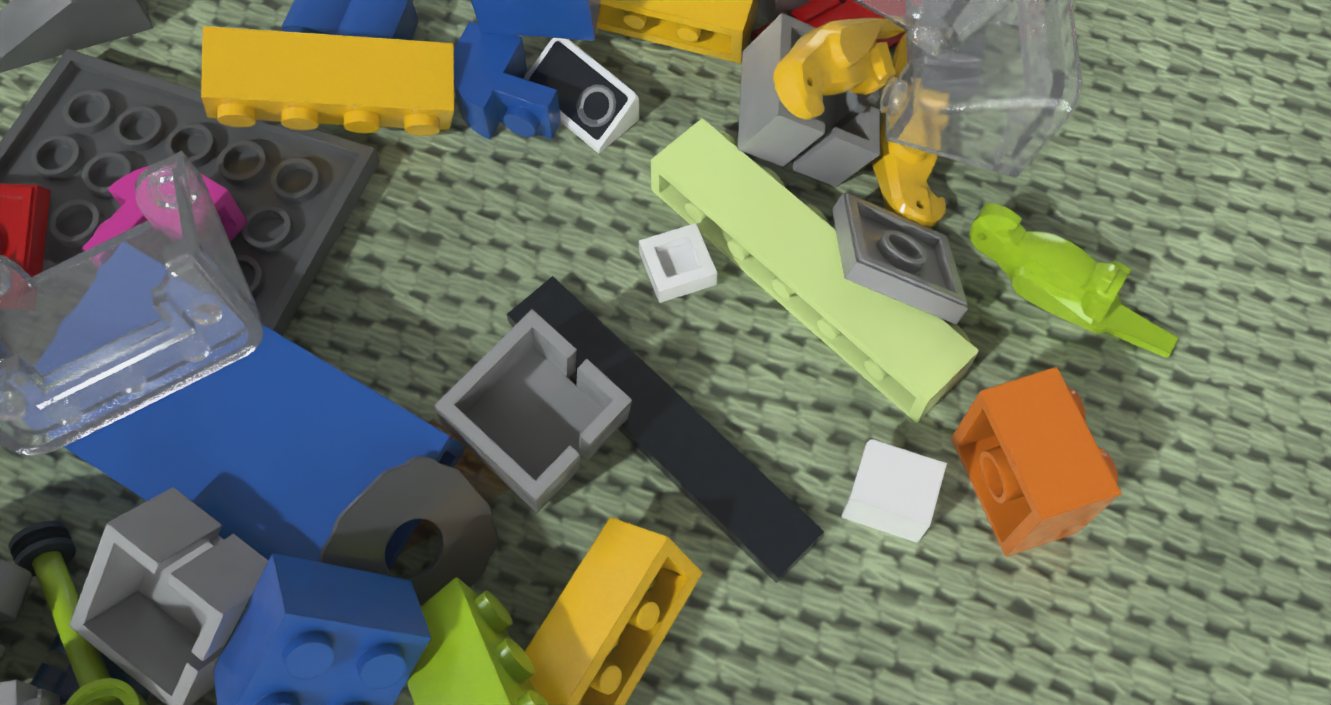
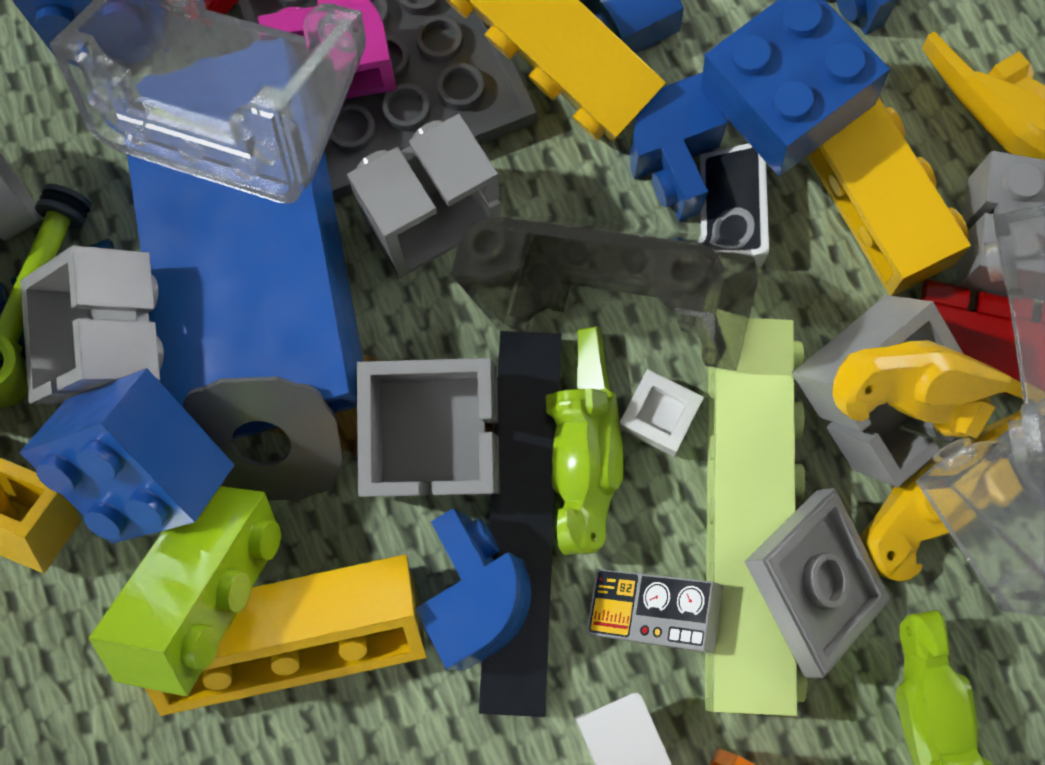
camera: 50 degrees right, 10 degrees up
(355, 262) = (427, 194): none -> light grey piece
(482, 226) = (531, 261): none -> clear smoke windscreen
(654, 330) = (586, 449): none -> lime animal
(706, 493) = (486, 605): none -> blue brick
(817, 382) = (656, 610): none -> tile

